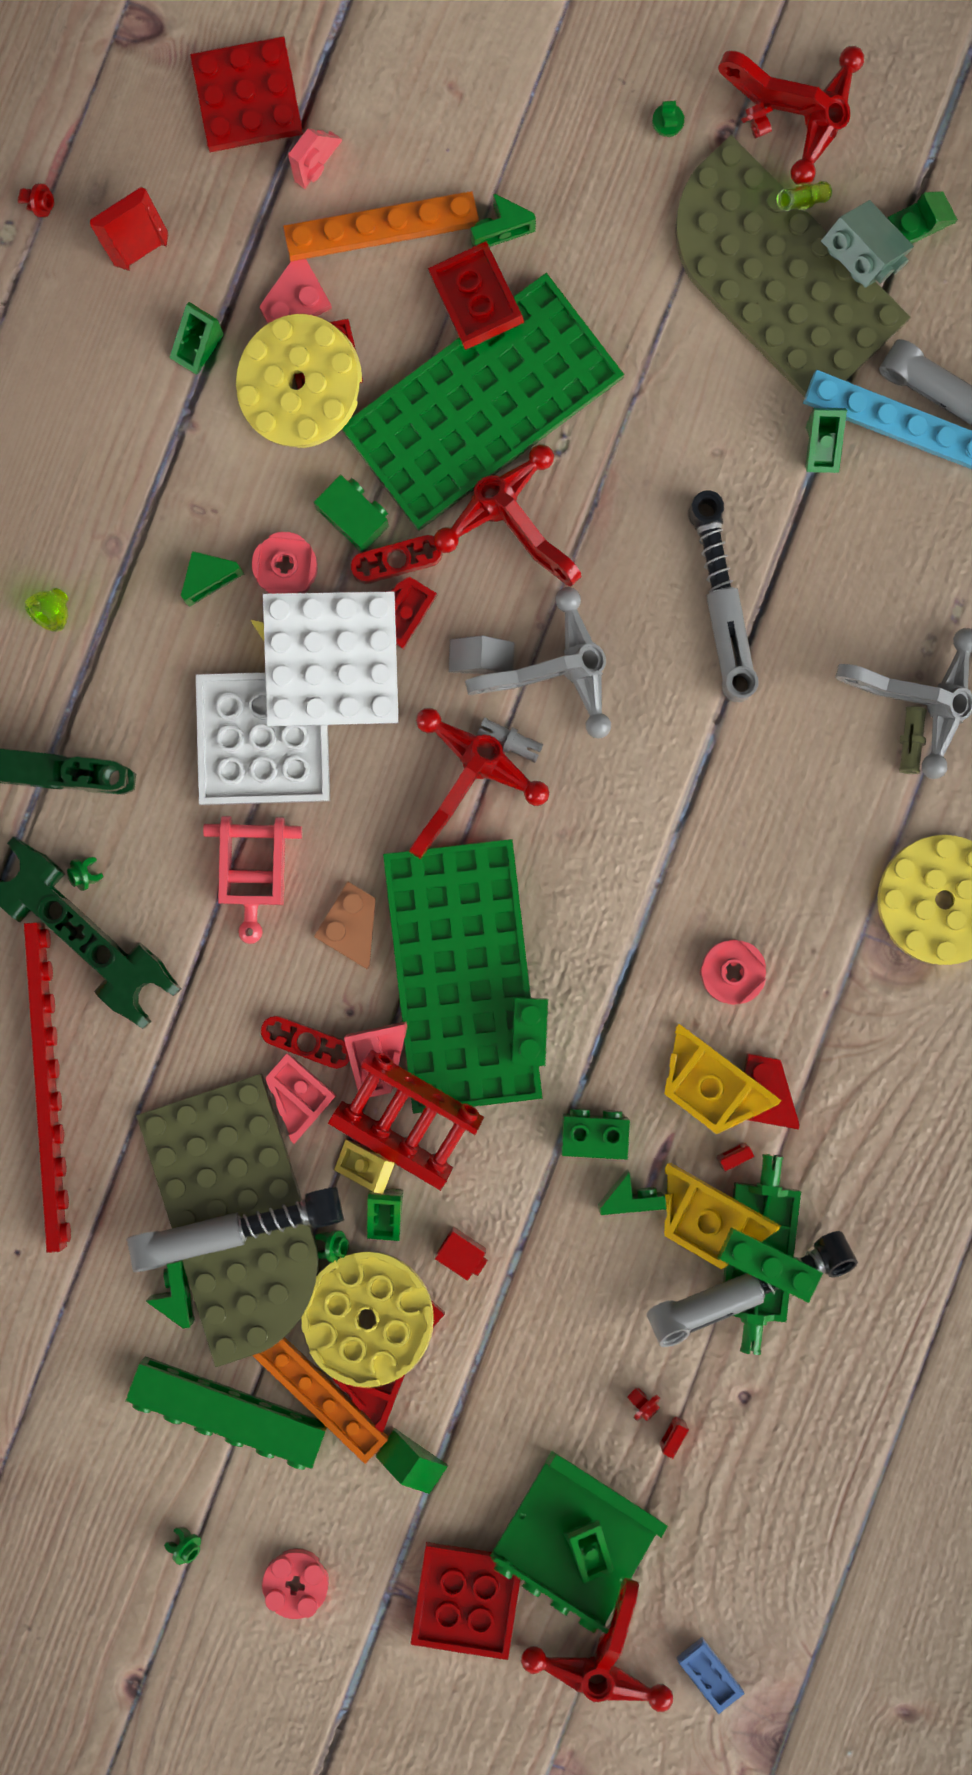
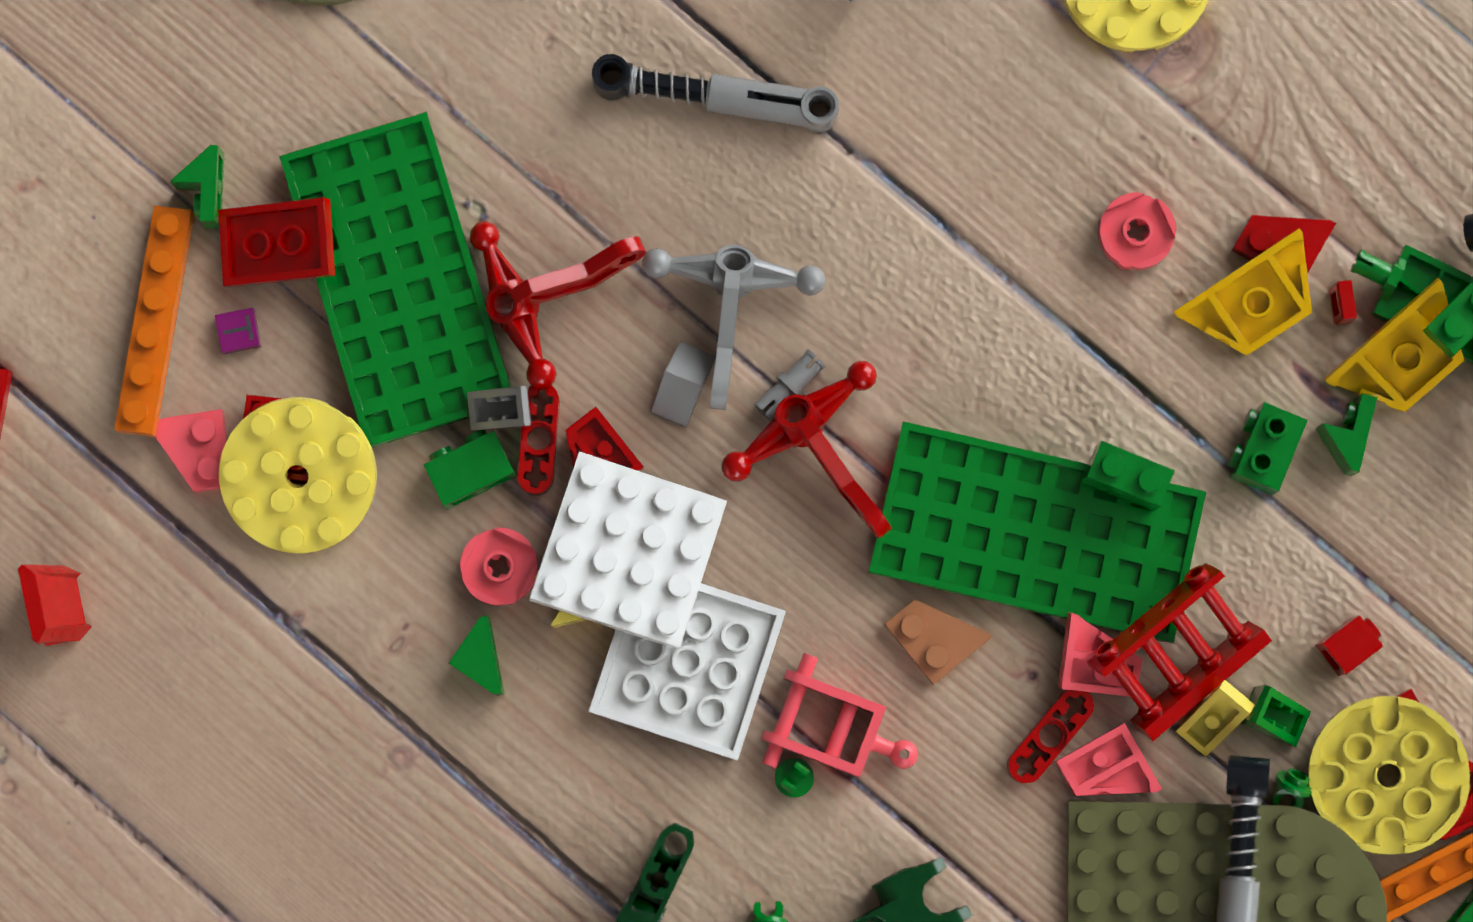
camera: 75 degrees left, 5 degrees down
(48, 609) = (451, 854): clear neon green brick -> none
(195, 338) = (204, 576): green slope -> none
(202, 853) = (794, 777): none -> green plate
(311, 154) = (51, 373): coral wing -> none
(397, 294) = (238, 330): none -> magenta tile
(406, 519) = (499, 408): none -> light grey slope

